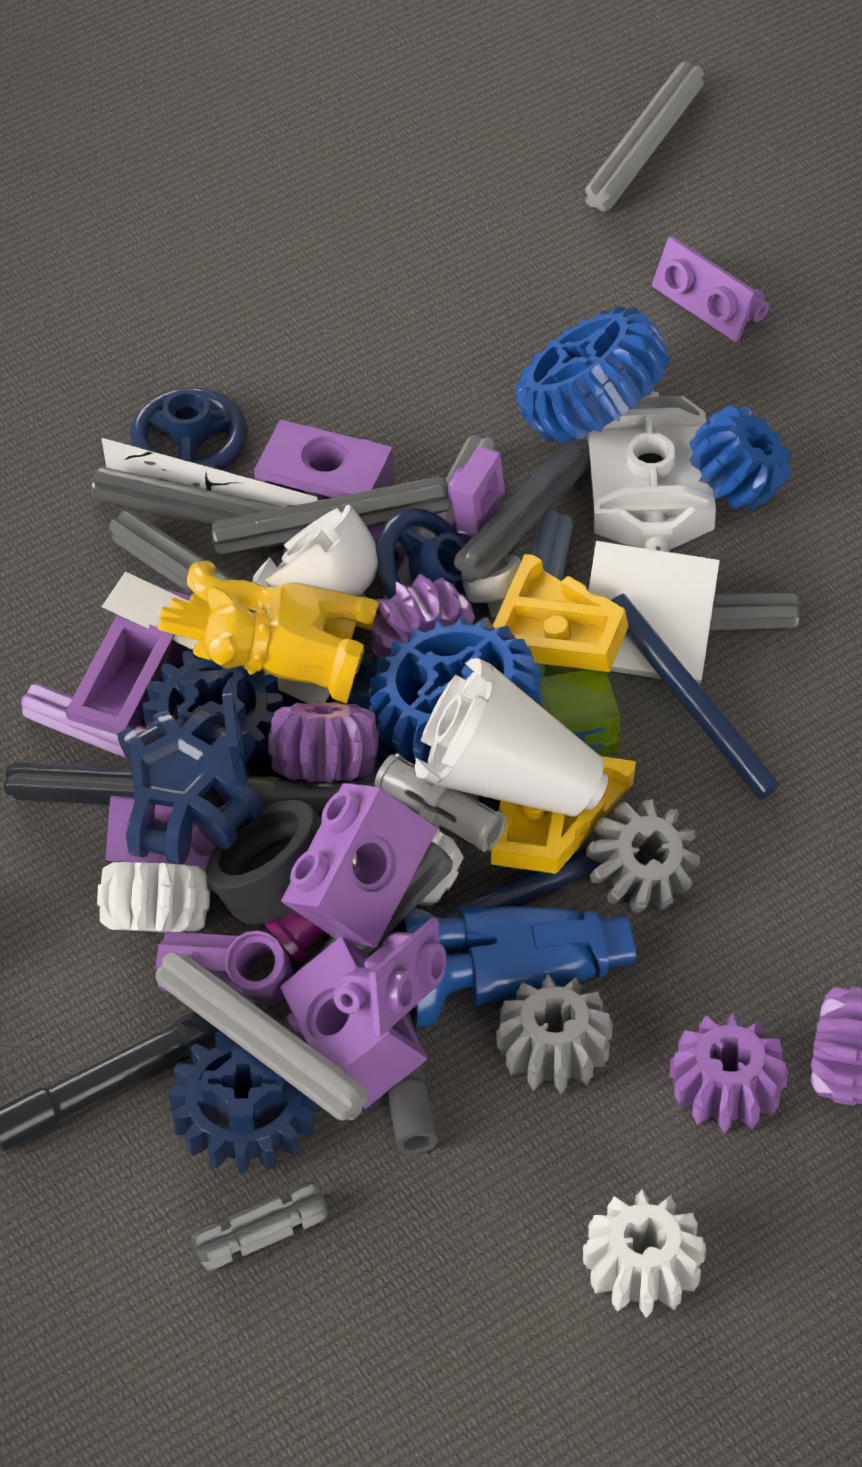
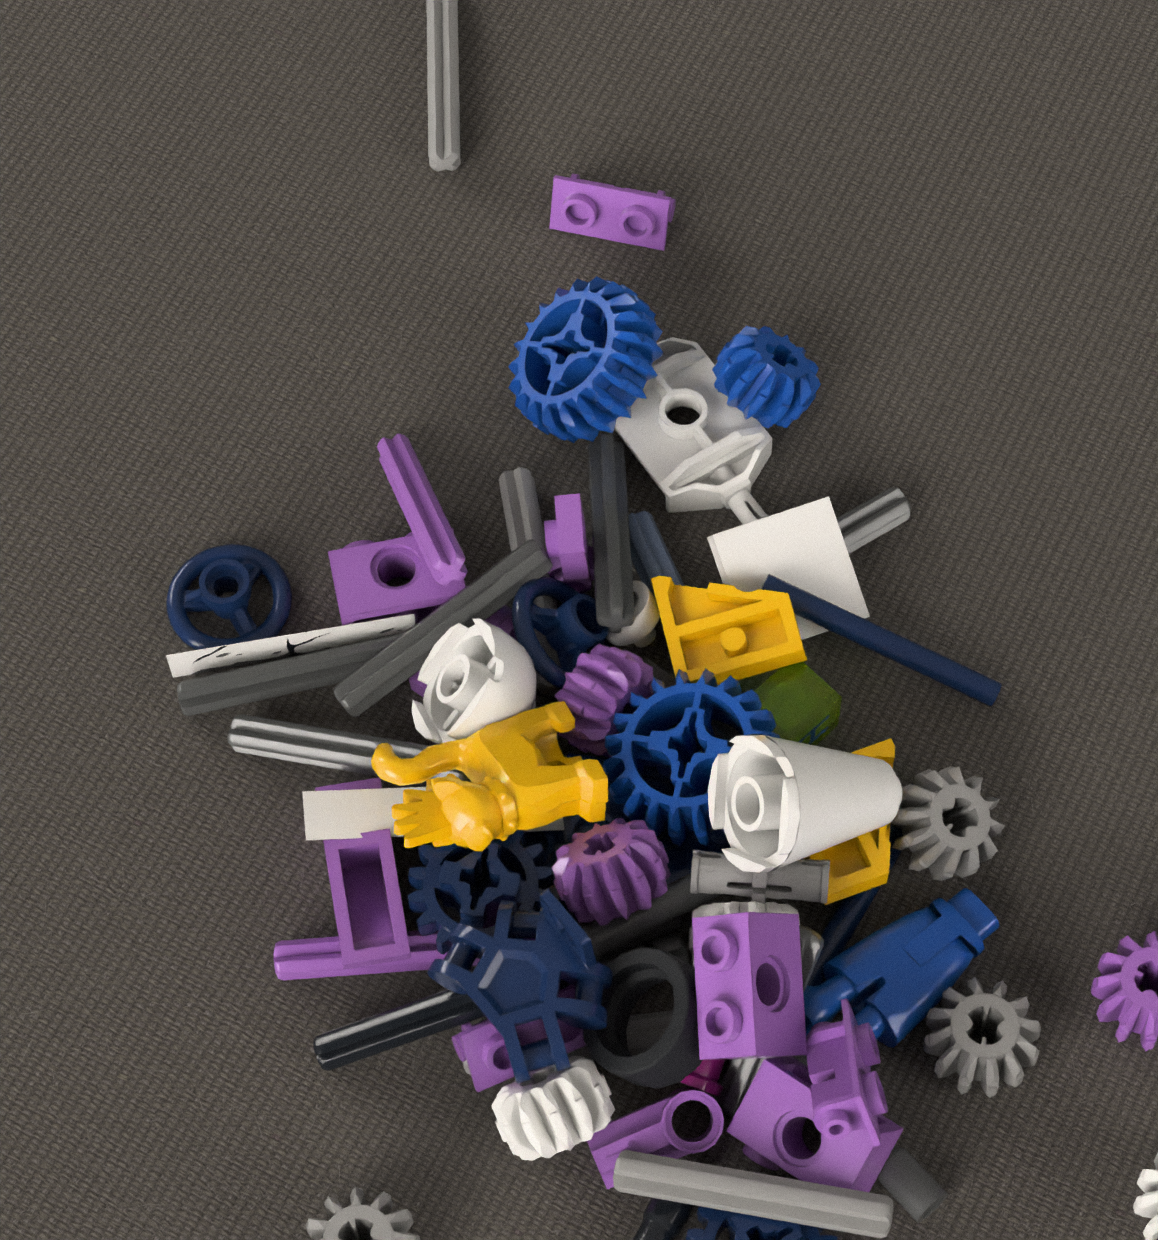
camera: 30 degrees left, 10 degrees up
(375, 421) = (422, 510): none -> medium lavender axle

